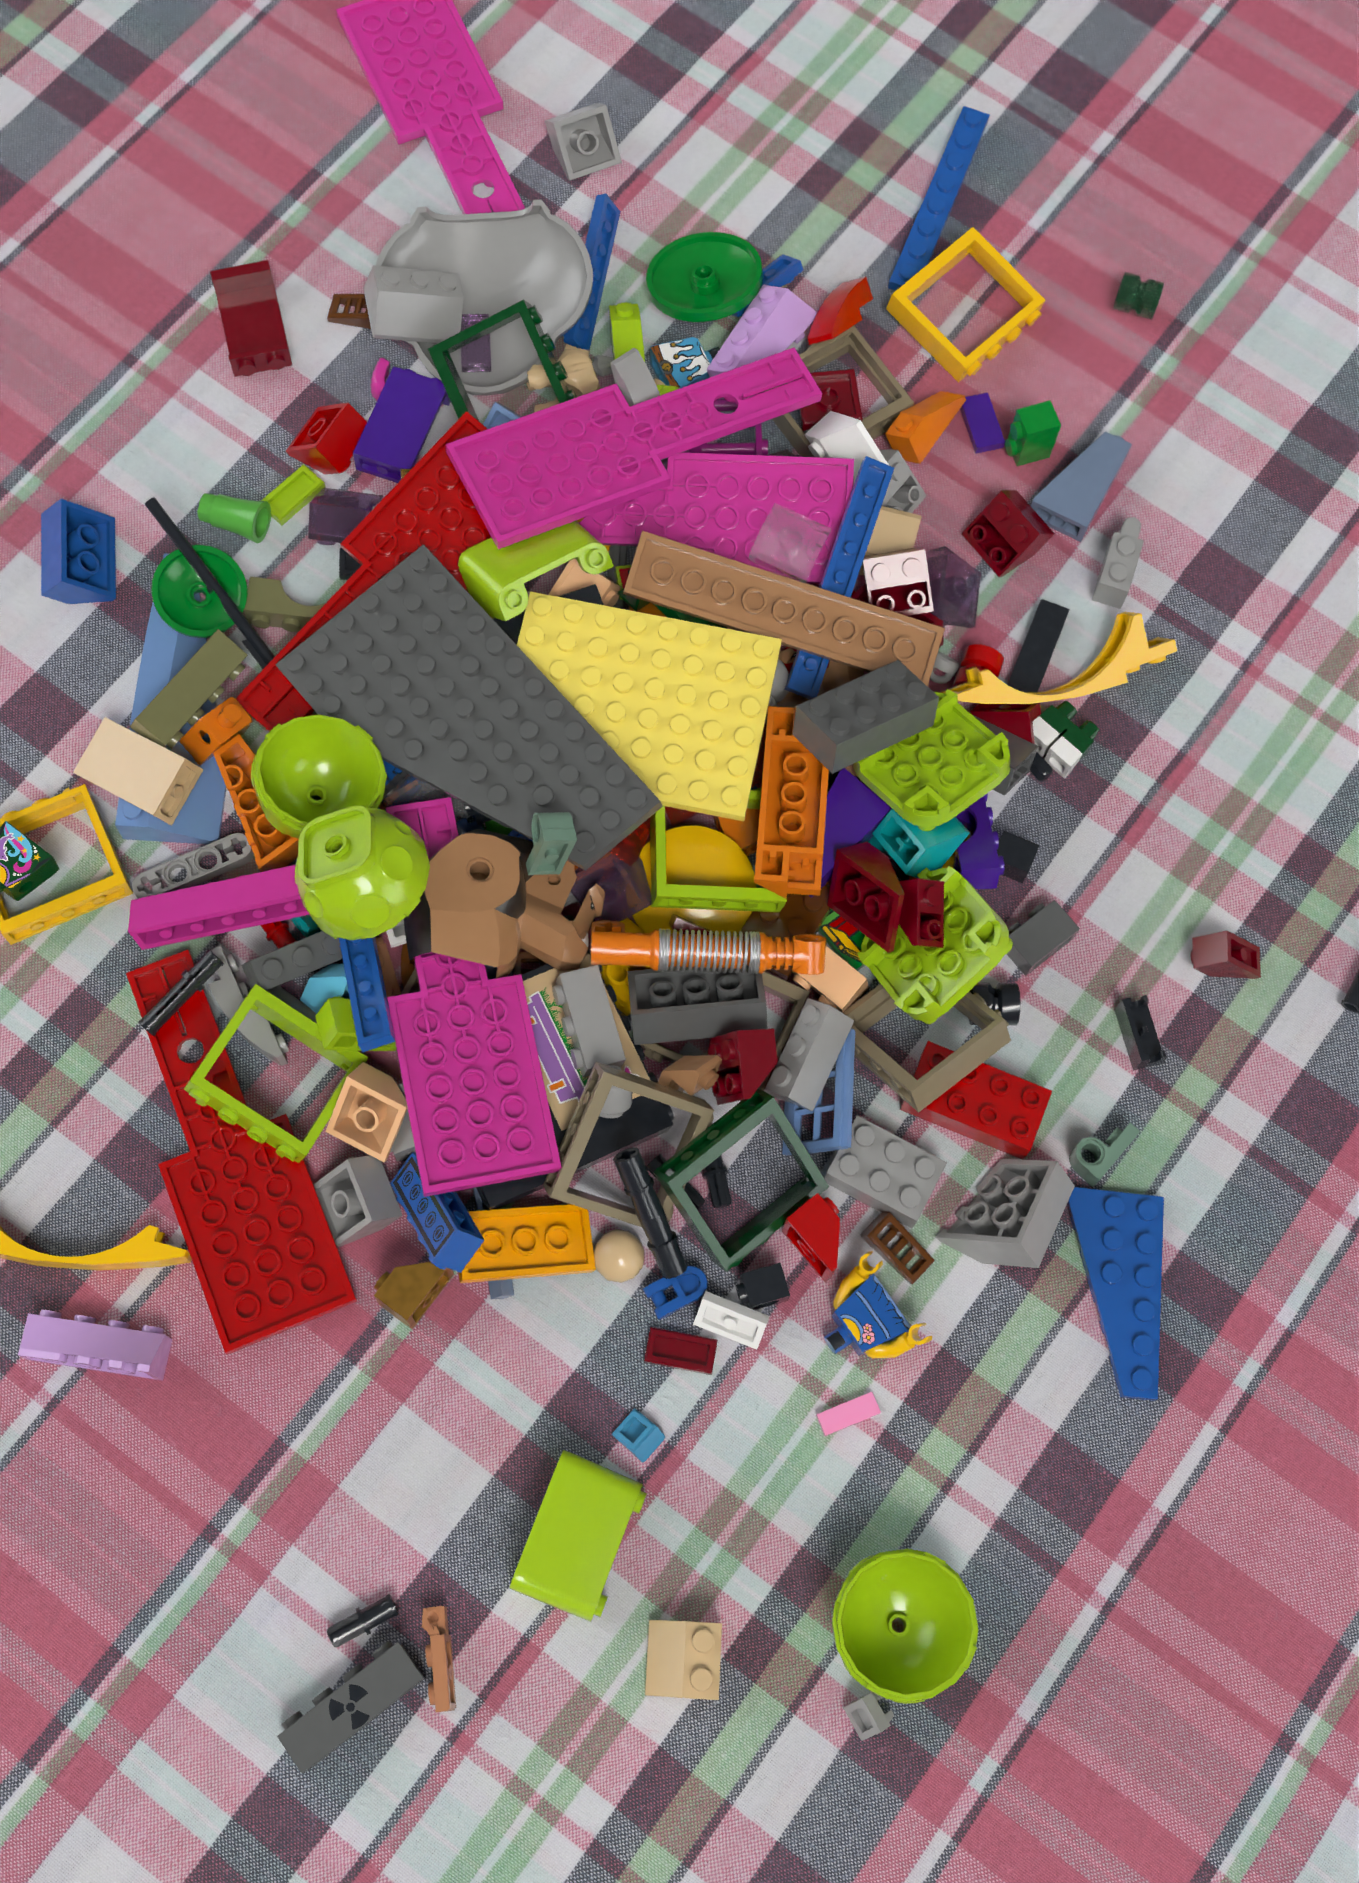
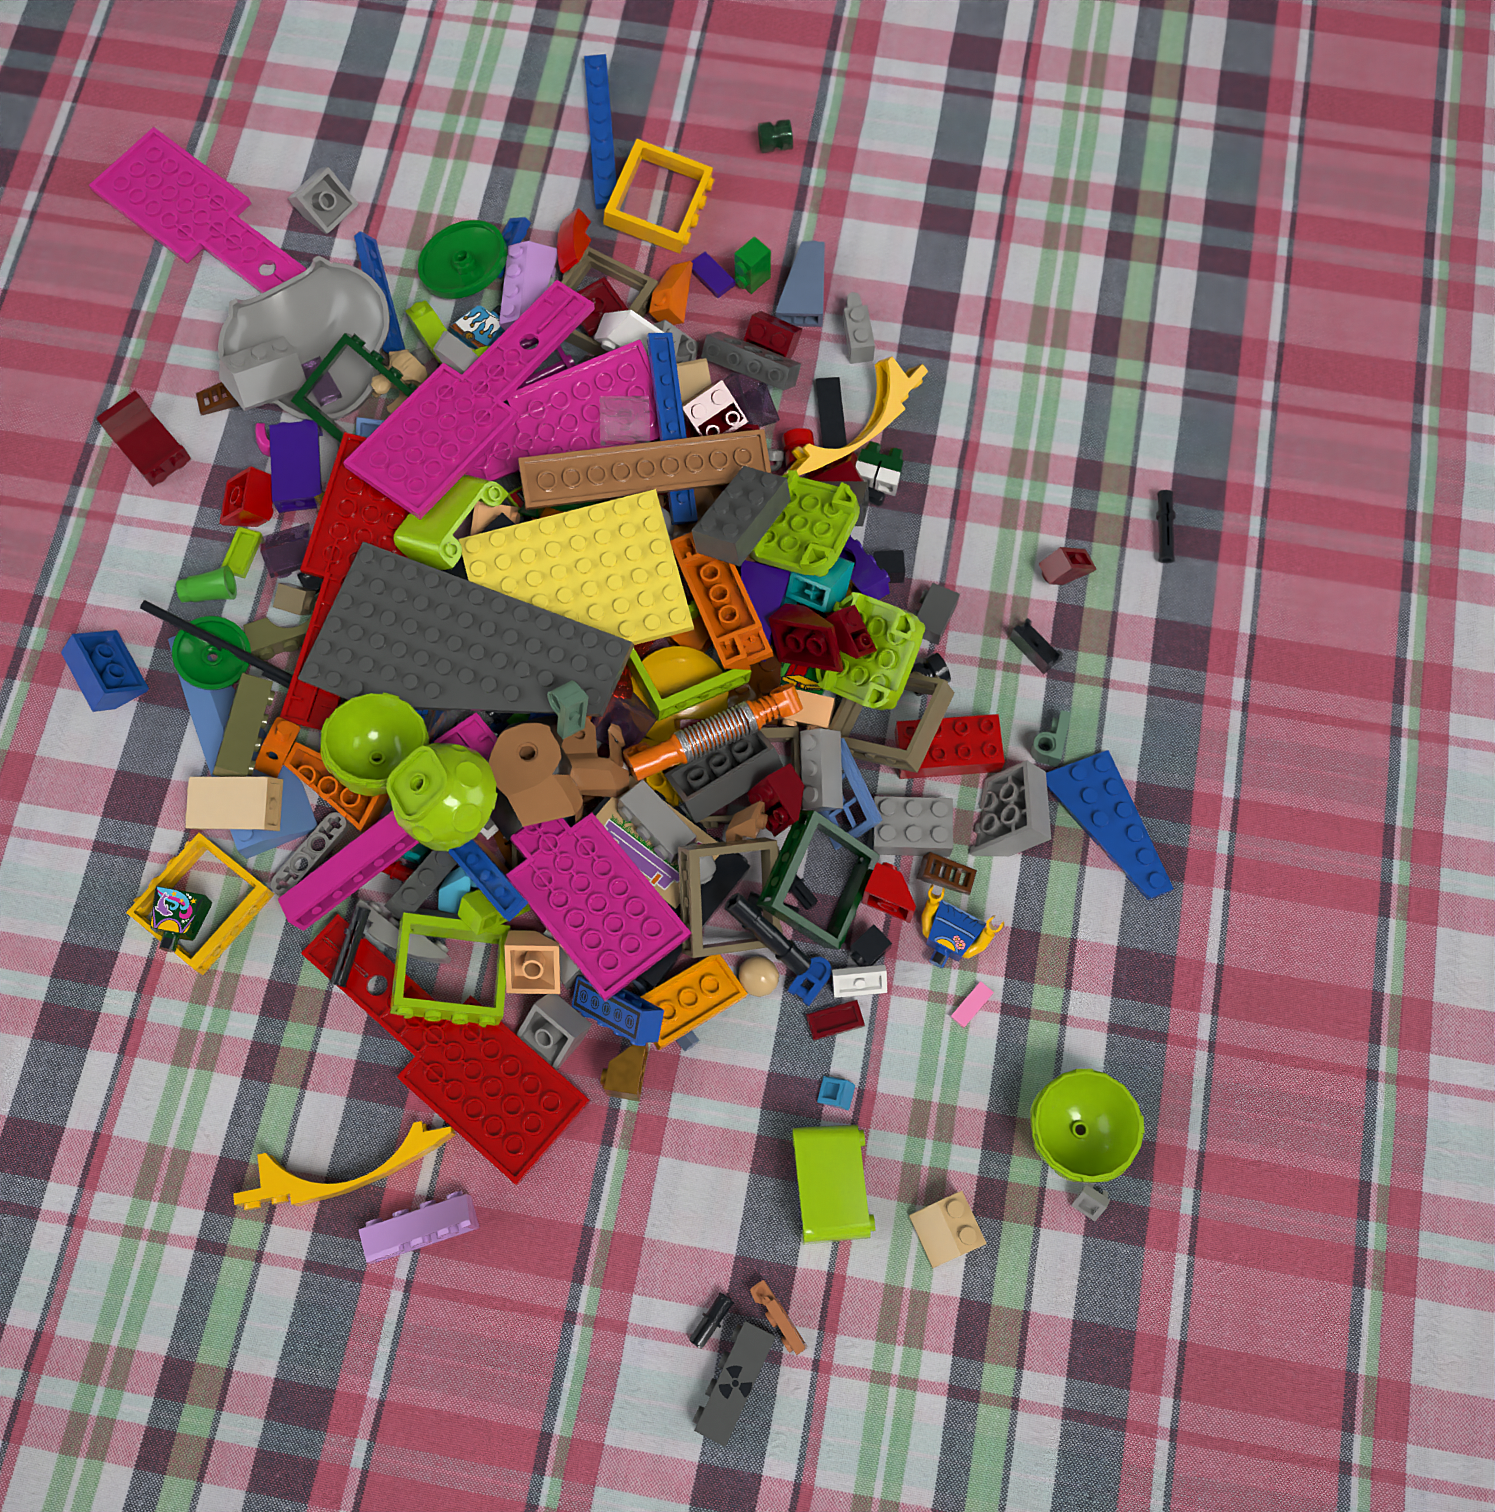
camera: 20 degrees left, 0 degrees up
(321, 573) = (294, 599): none -> dark tan brick
(974, 543) = (751, 360): none -> dark grey brick

